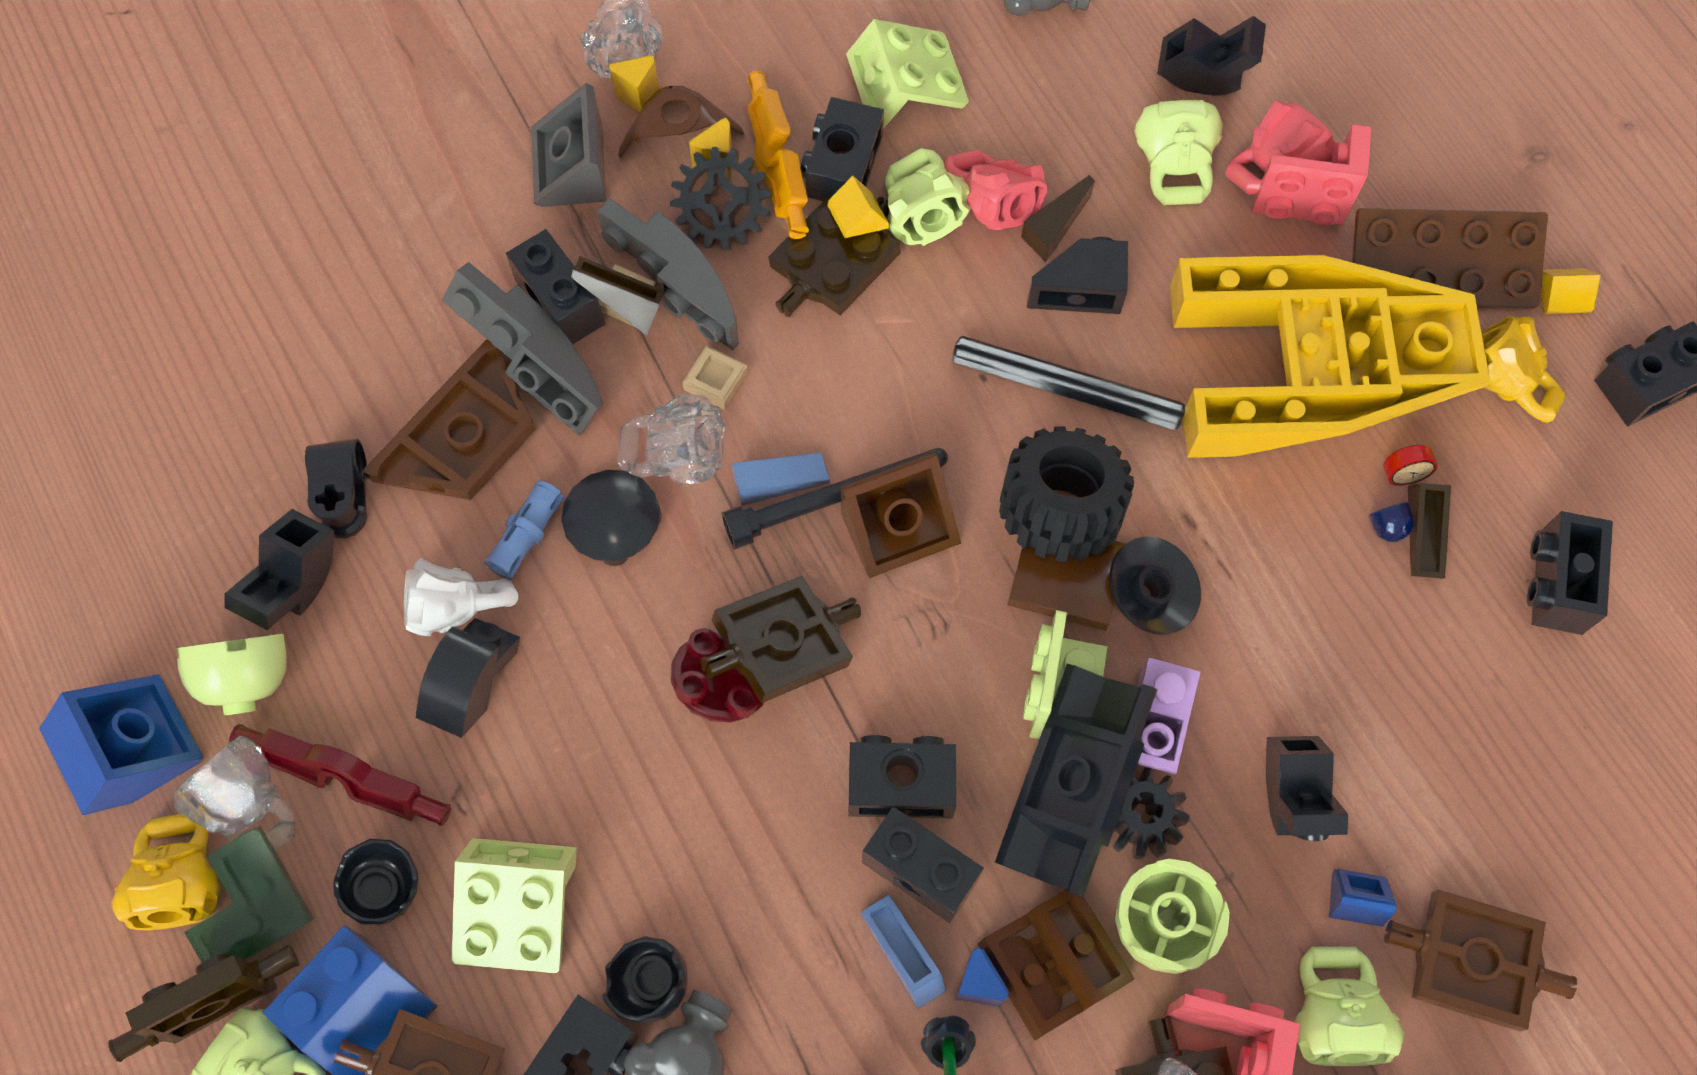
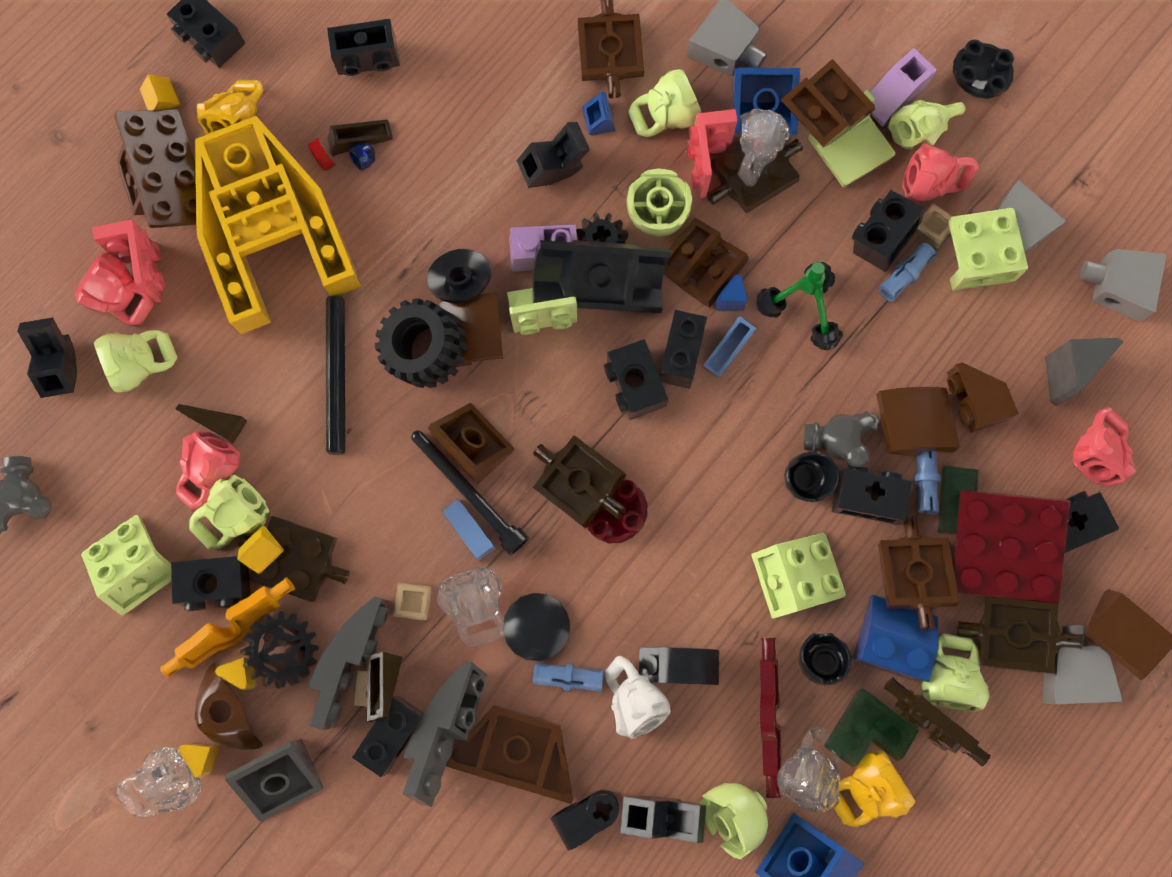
camera: 110 degrees left, 10 degrees up
(1083, 278) = (255, 385): black slope -> none

